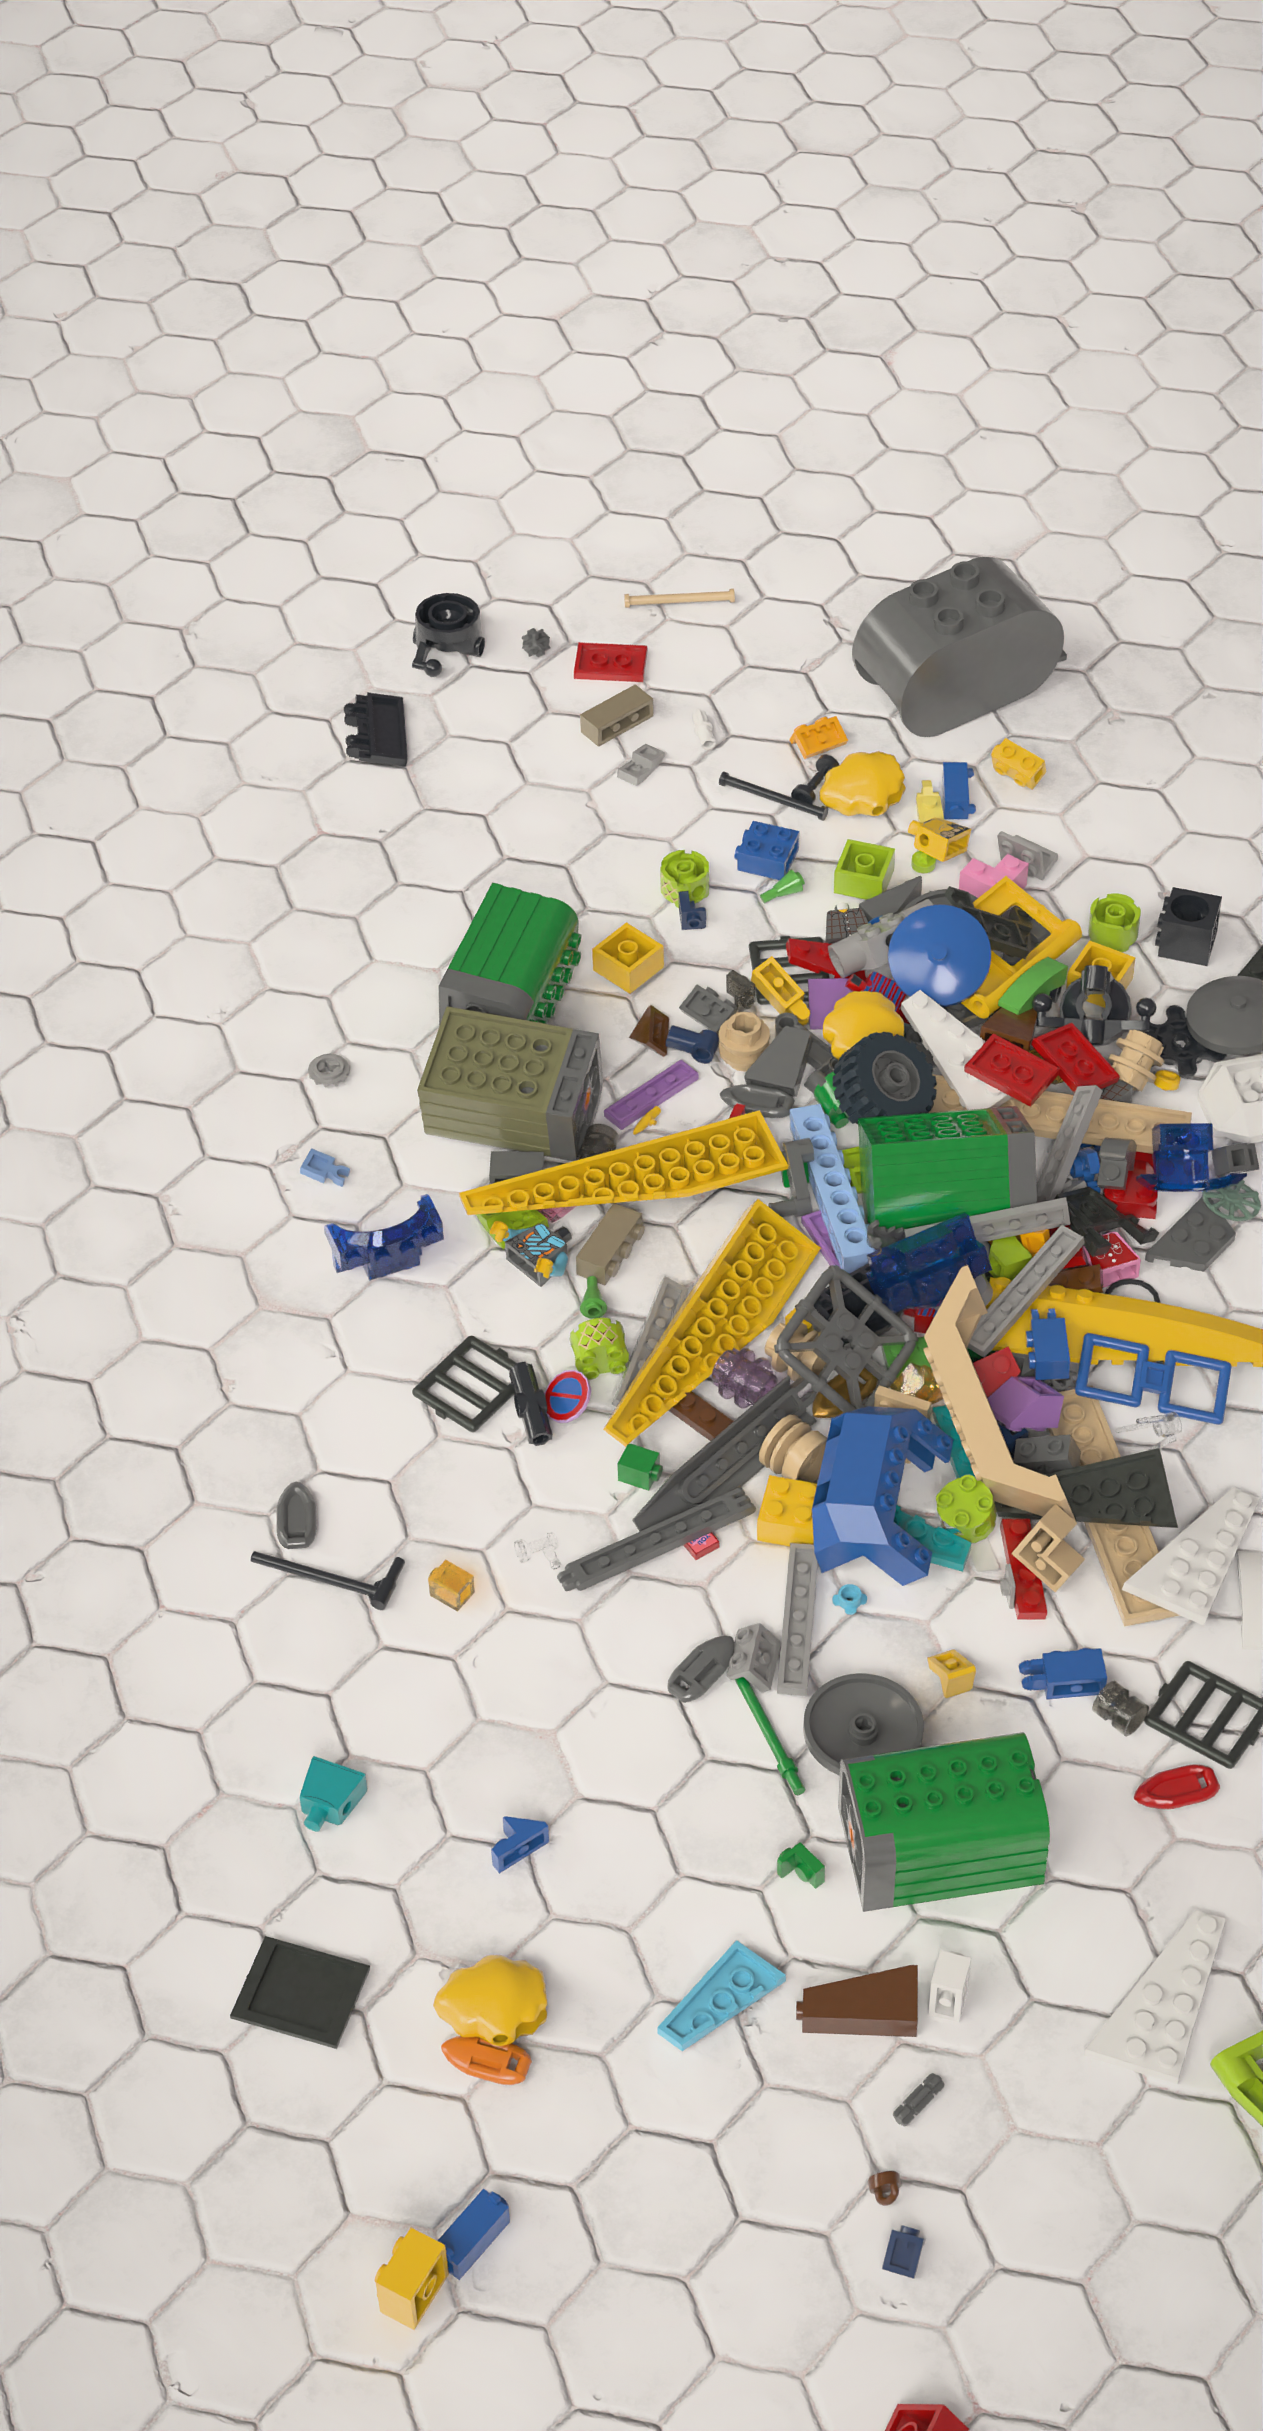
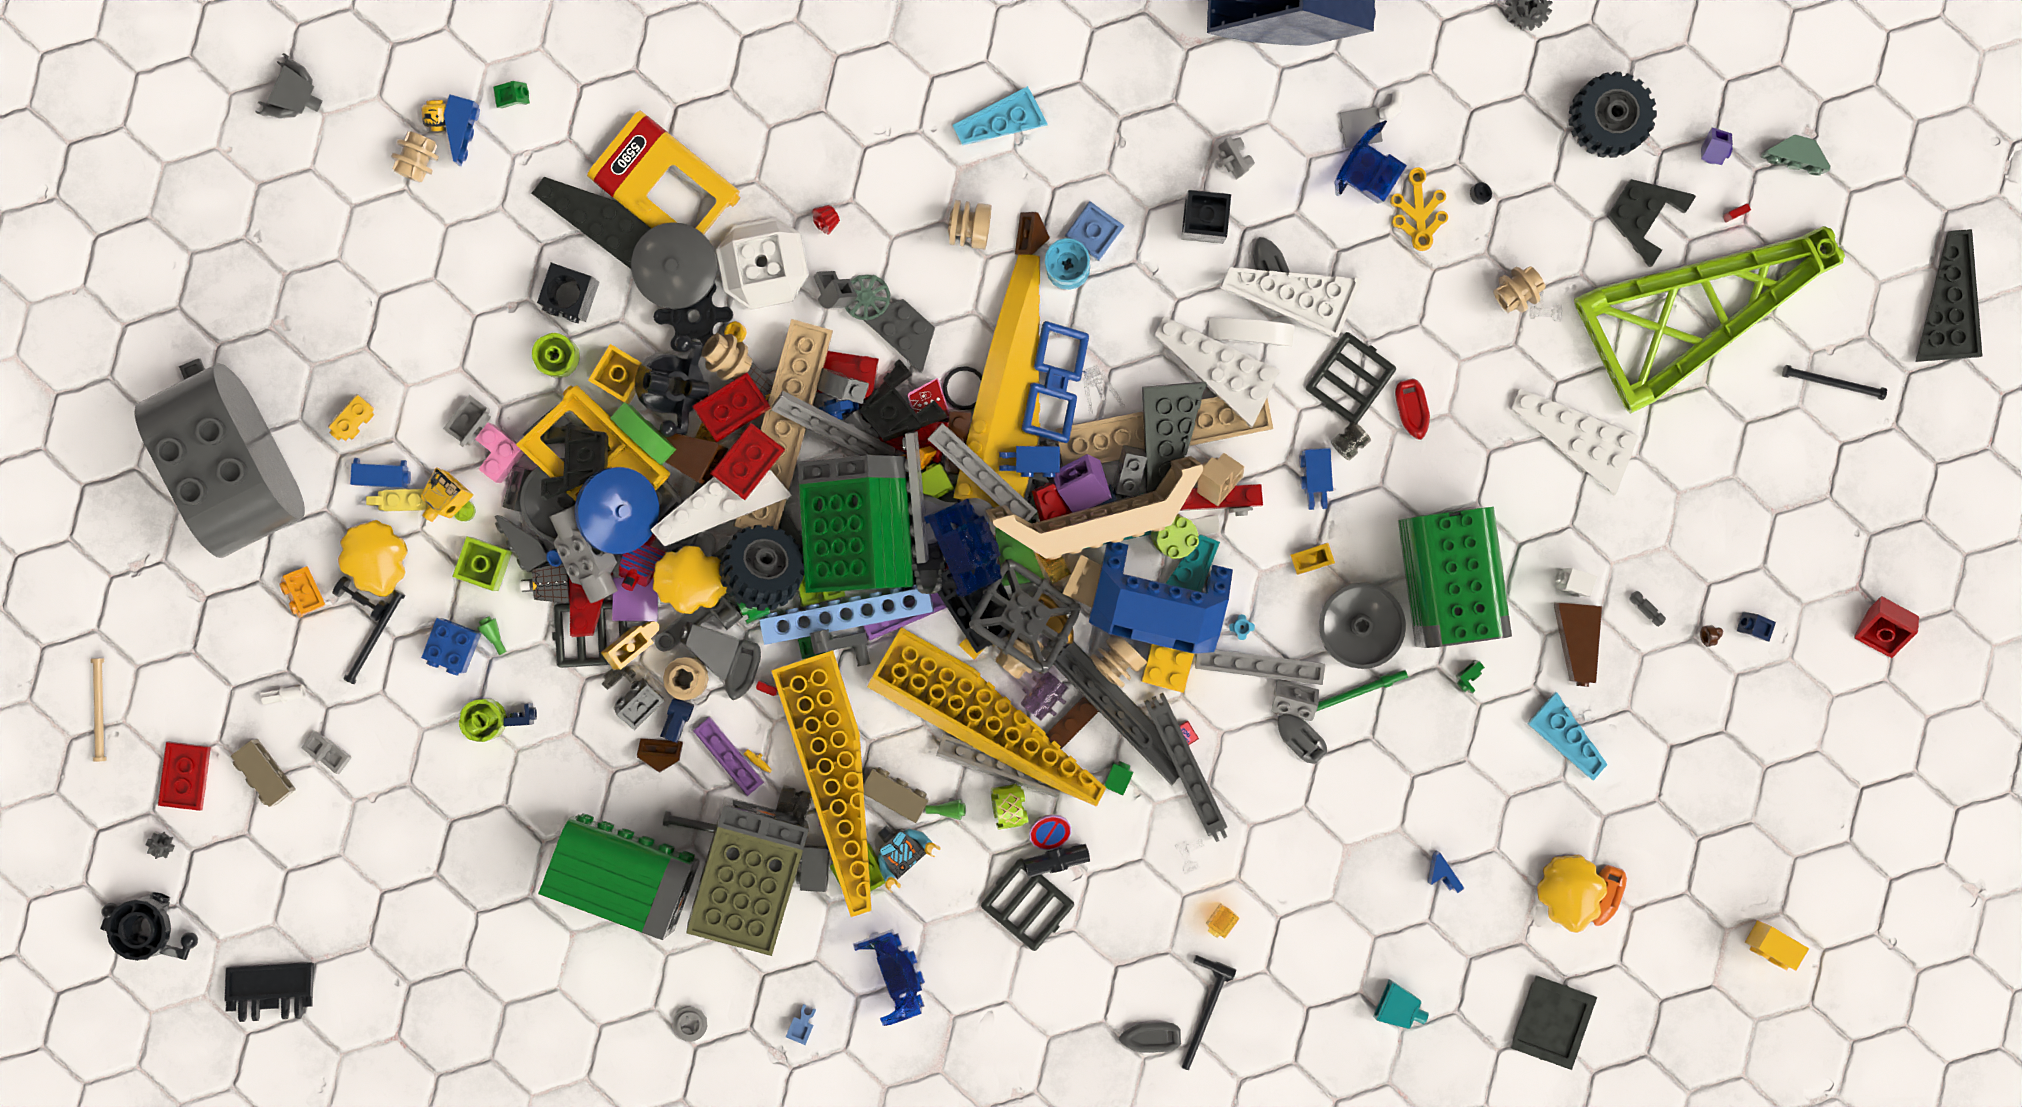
camera: 85 degrees left, 40 degrees up
(474, 2231) = (1738, 906): blue brick -> none
(628, 958) = (579, 772): yellow brick -> none
(1182, 1160) = (843, 332): clear blue piece -> none

